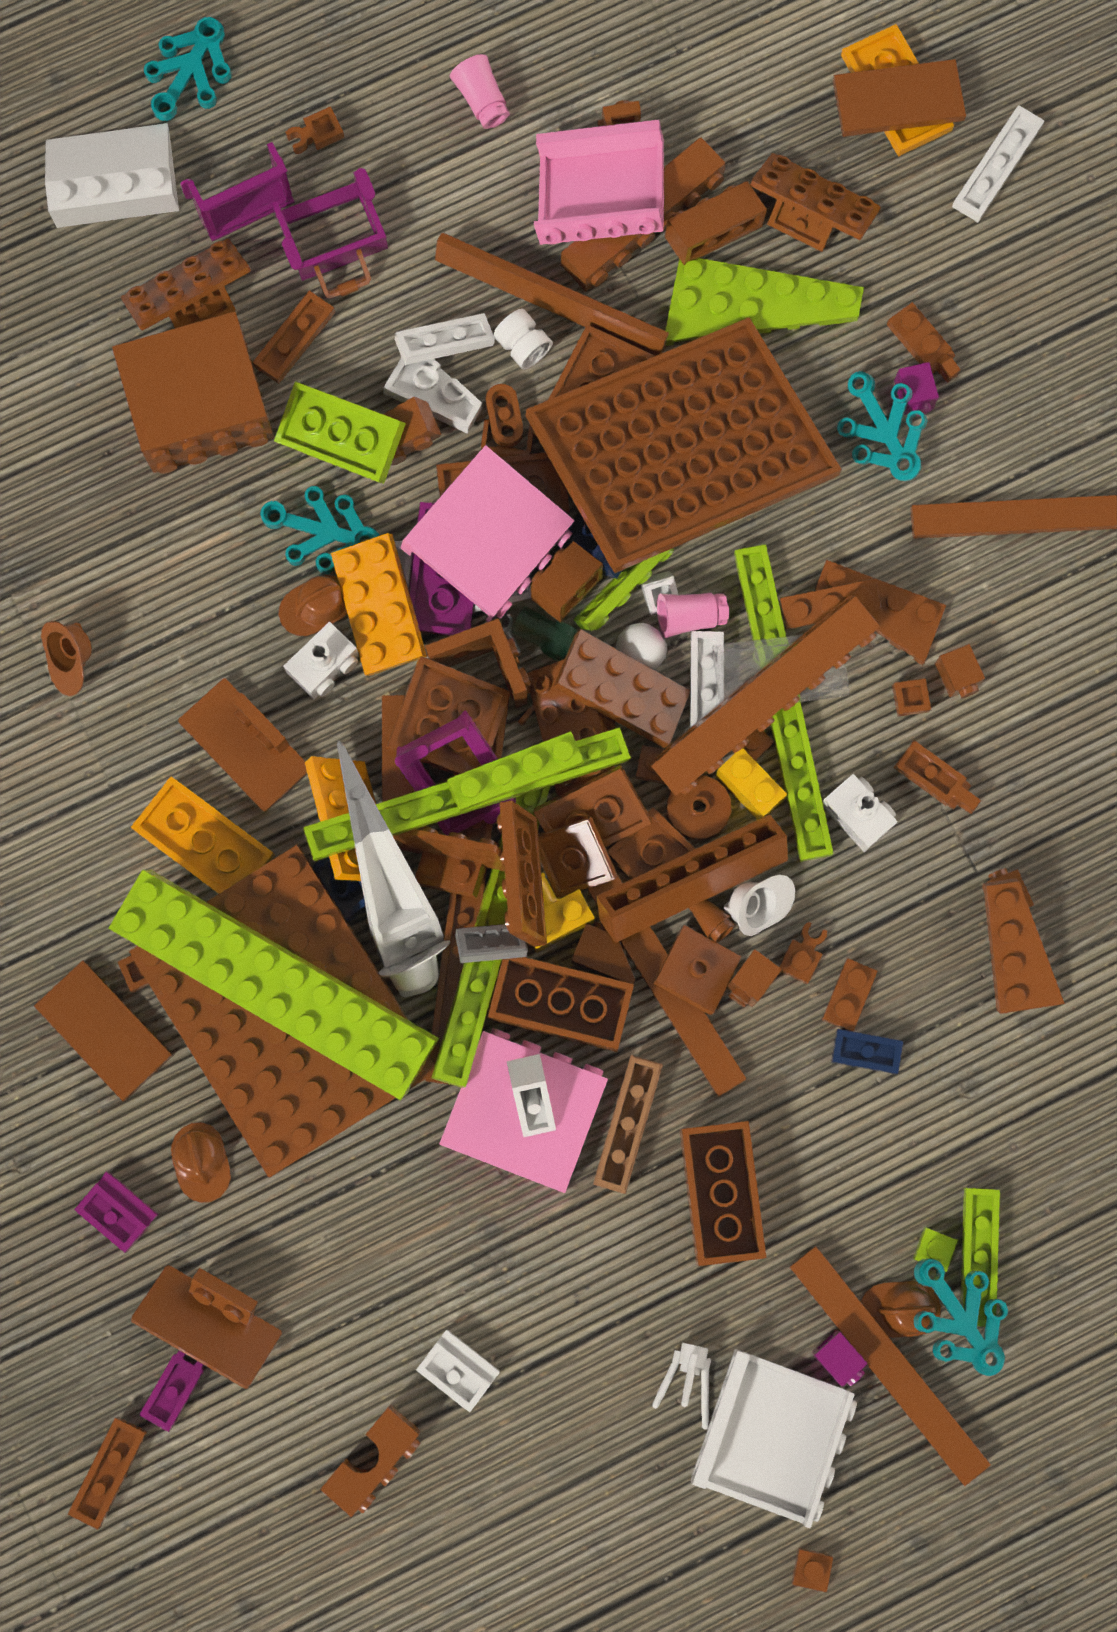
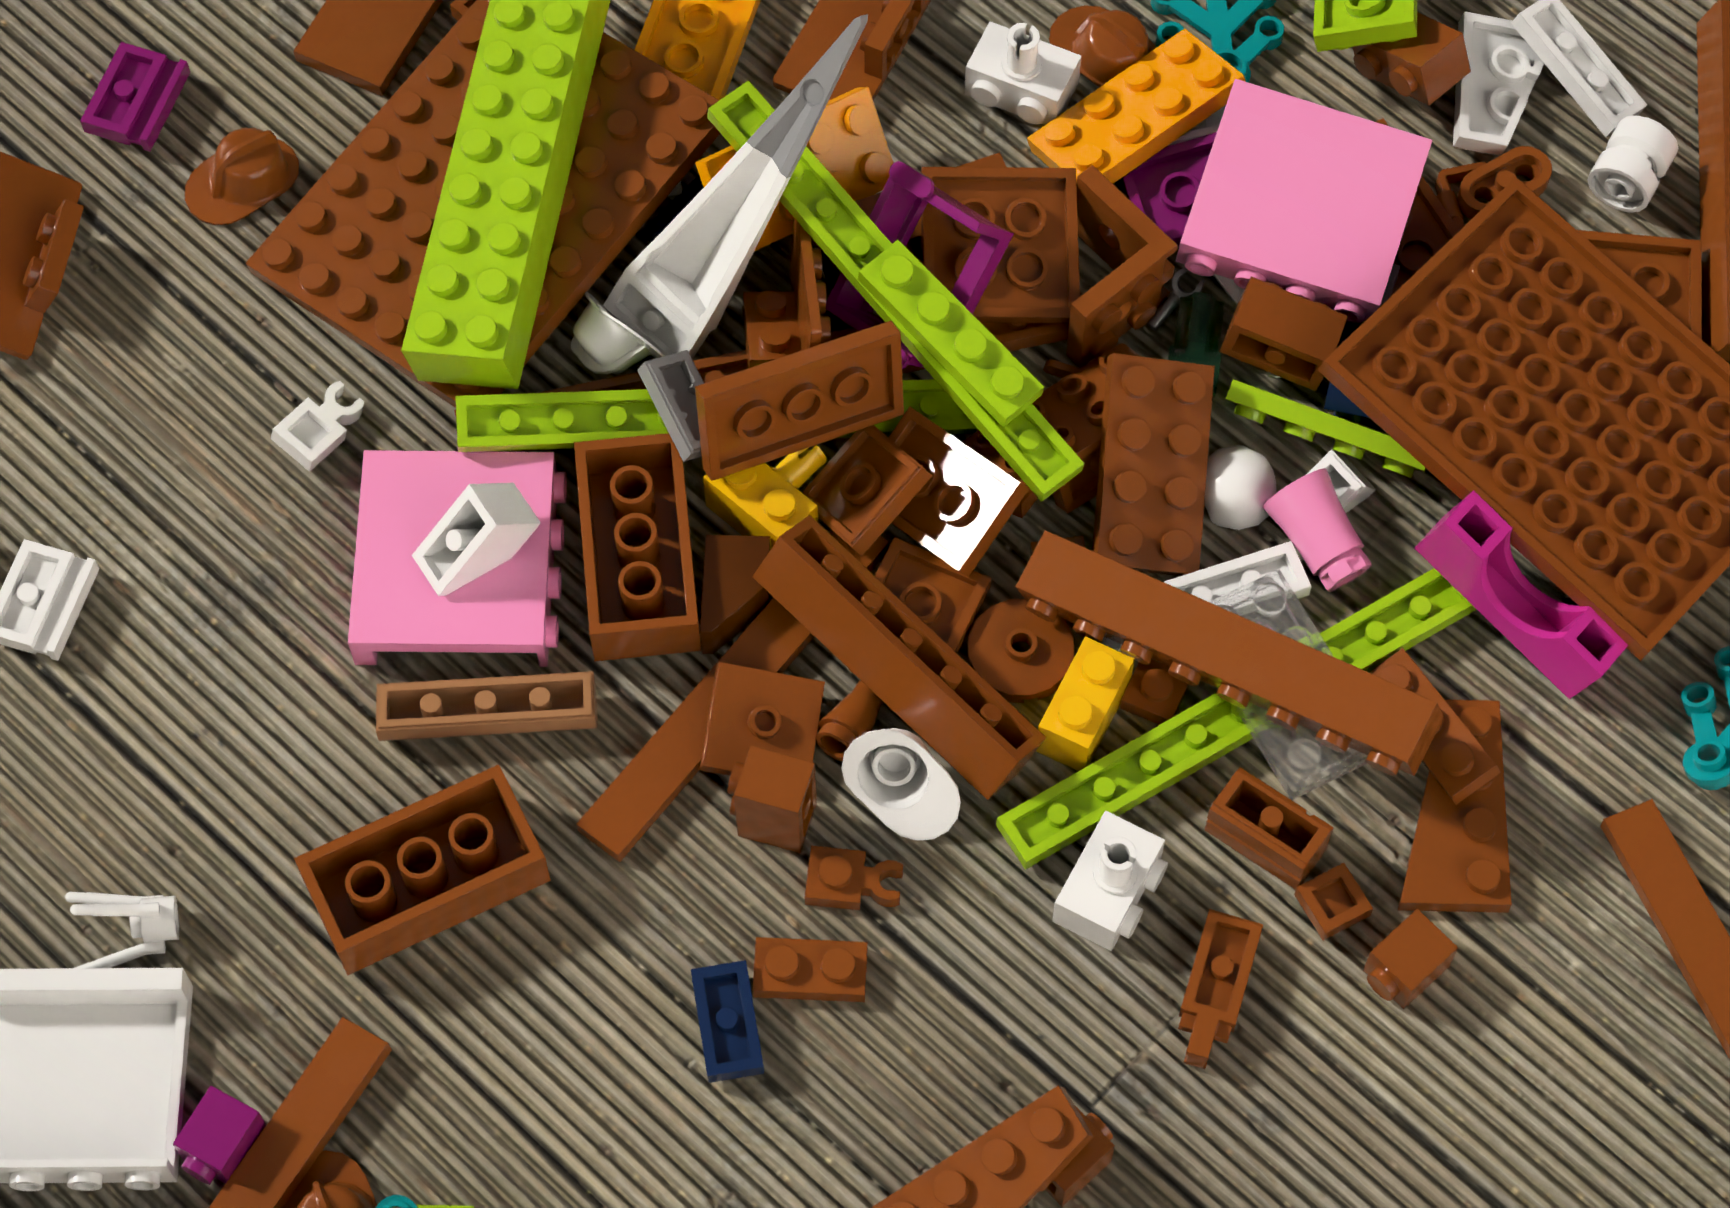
camera: 70 degrees right, 15 degrees down
(404, 1170) = (316, 430): none -> white plate
(751, 535) = (1558, 638): none -> dark pink arch
(863, 714) = (1268, 828): none -> dark orange brick

